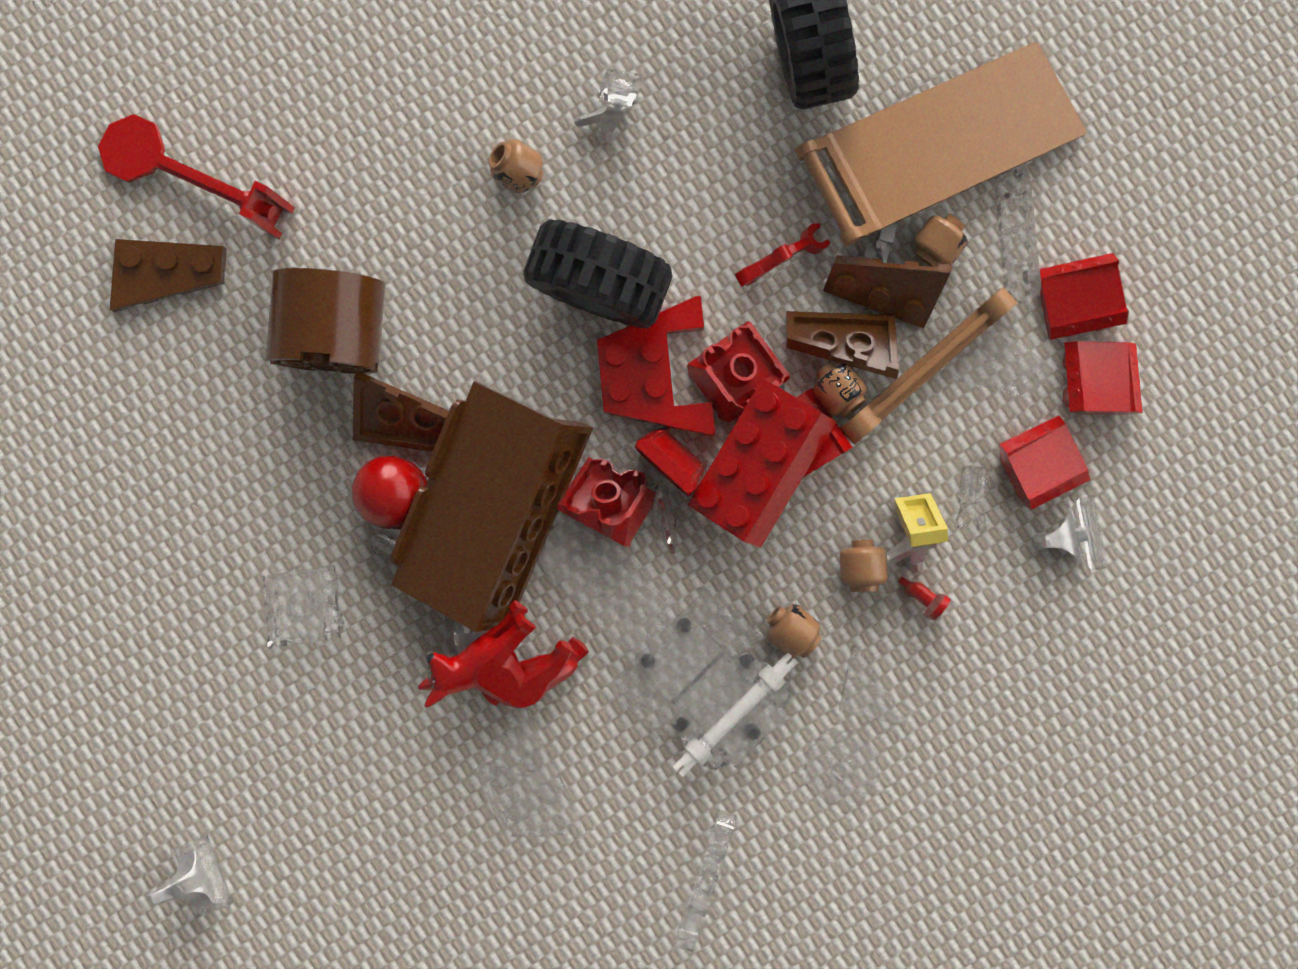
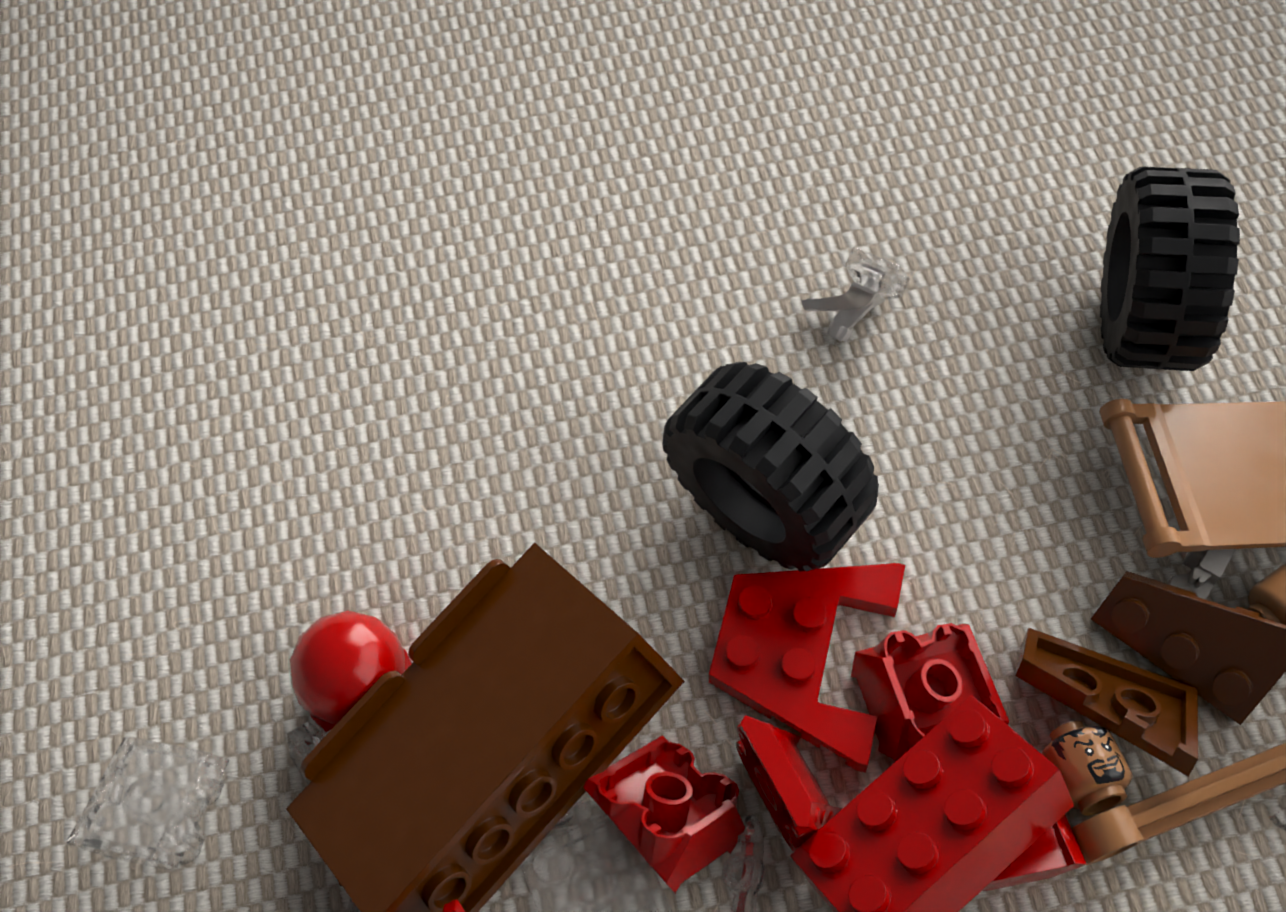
camera: 25 degrees right, 25 degrees down
(136, 149) = (263, 177): red piece -> none
(162, 269) = (214, 311): reddish brown wing -> none
(325, 320) = (373, 412): reddish brown brick -> none
(394, 416) = (401, 568): reddish brown wing -> none
(516, 166) = (706, 324): medium nougat head -> none
(781, 255) = (995, 557): red piece -> none

